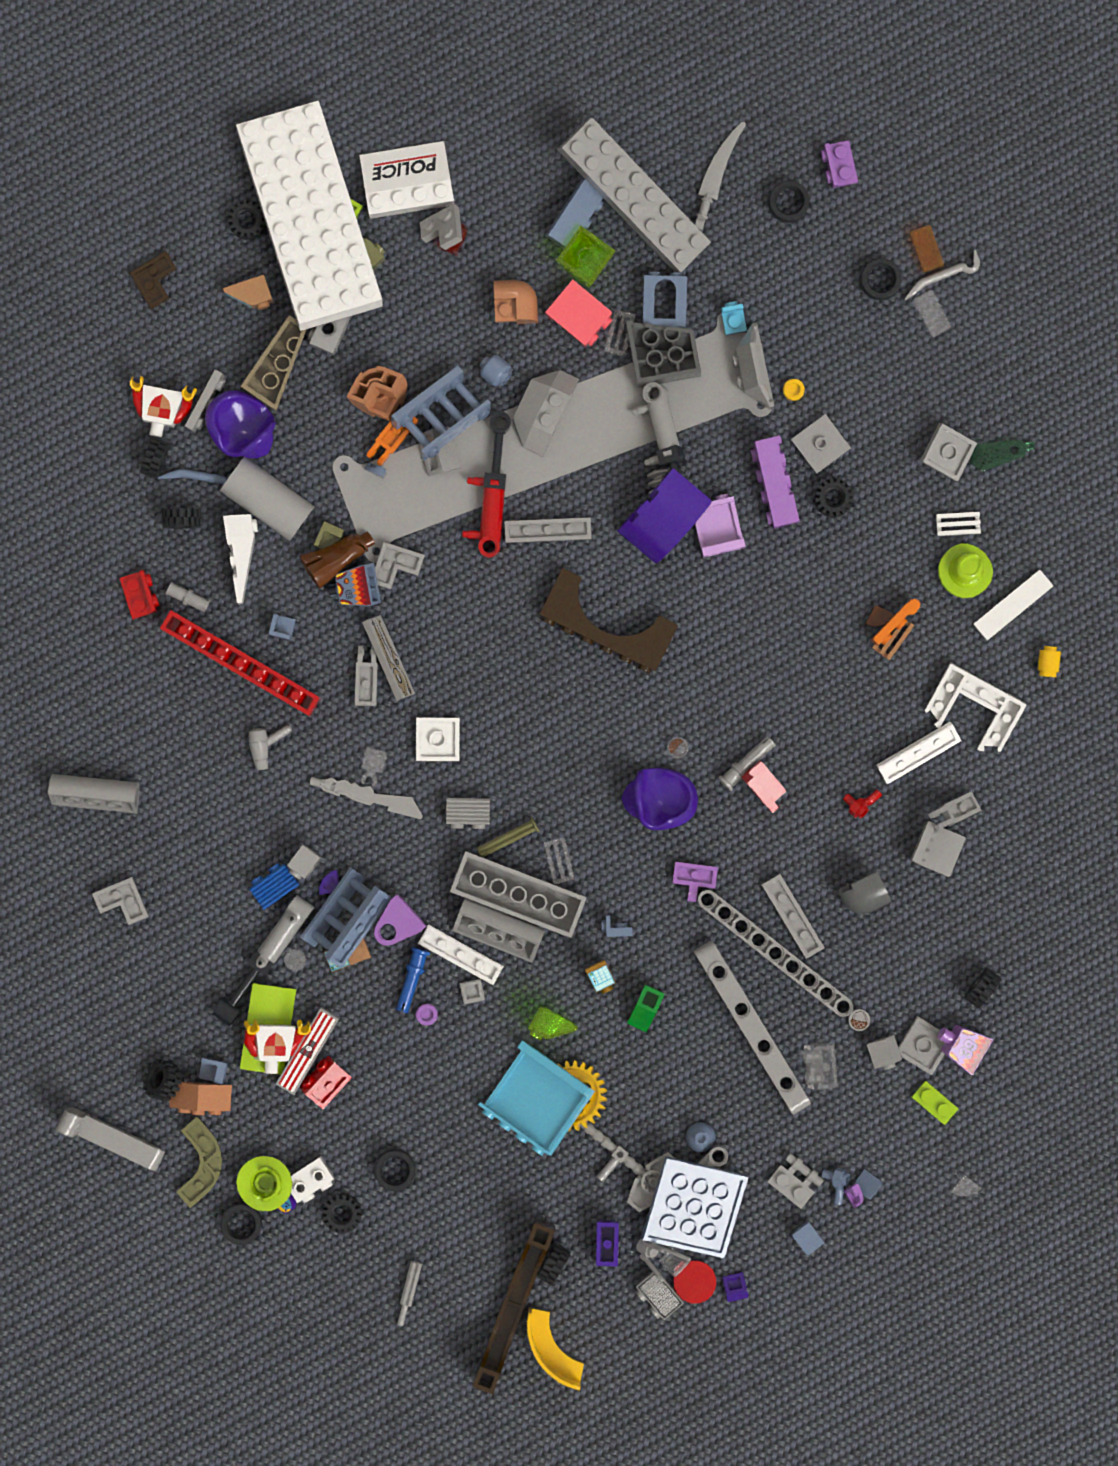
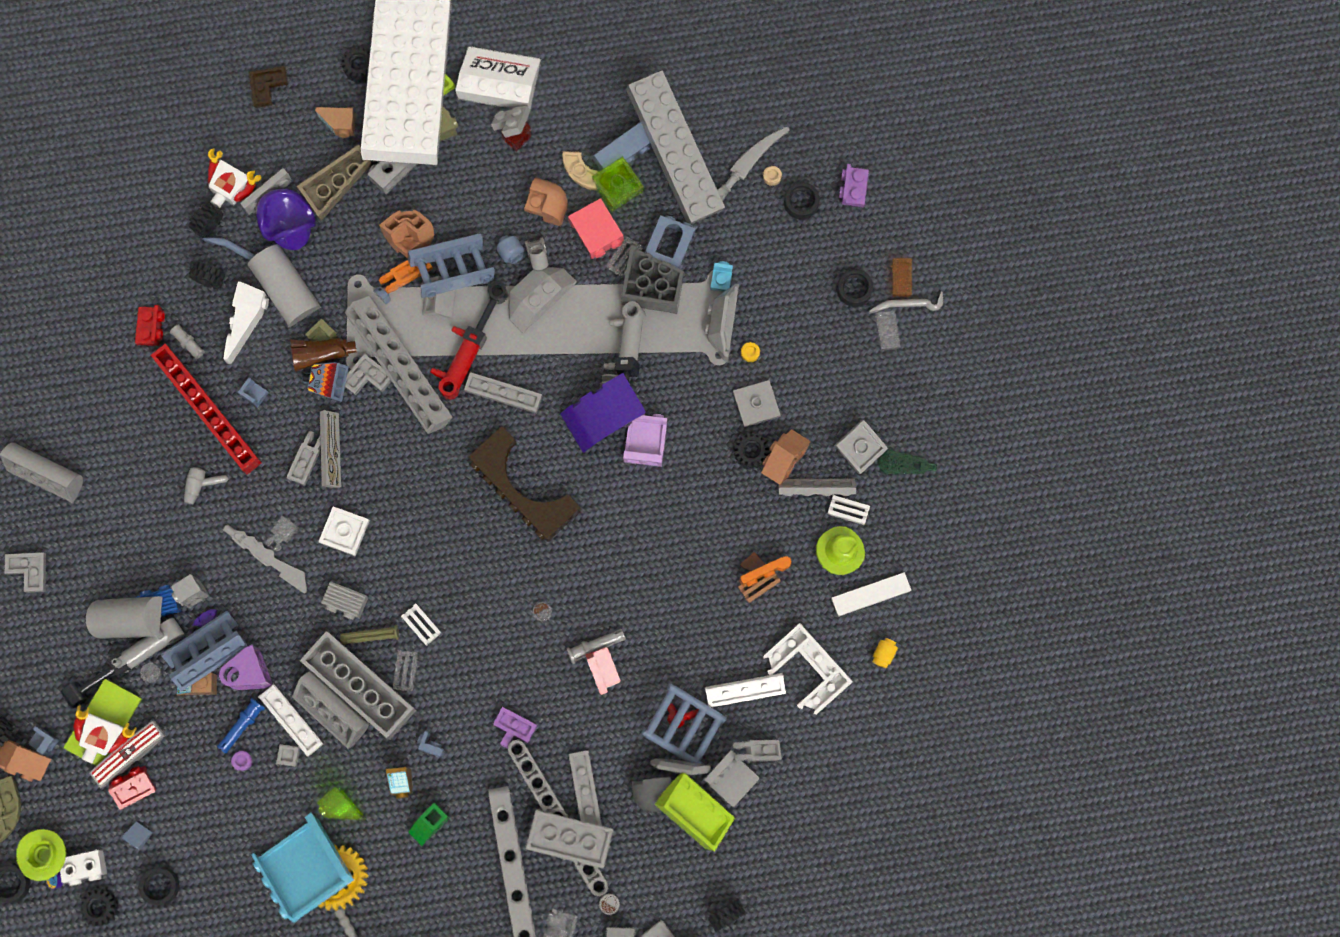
camera: 25 degrees right, 10 degrees down
(249, 913) = (124, 617): none -> light grey brick
(351, 1128) = (137, 835): none -> sand blue slope
(425, 541) = (398, 364): none -> light grey brick
(527, 365) = (537, 253): none -> light grey piece
(534, 254) = (578, 170): none -> tan tile
(540, 798) = (410, 612): none -> white tile
(661, 798) = (510, 647): dark purple piece -> none
(746, 184) = (772, 175): none -> tan tile
(775, 482) = (707, 419): medium lavender wedge -> none
(796, 970) = (569, 839): none -> light grey tile
(872, 491) = (784, 455): none -> nougat brick
(881, 856) = (680, 766): none -> light grey tile
(883, 789) = (665, 741): none -> sand blue bar
(915, 896) = (695, 811): none -> lime slope
(916, 511) = (817, 486): none -> light grey plate

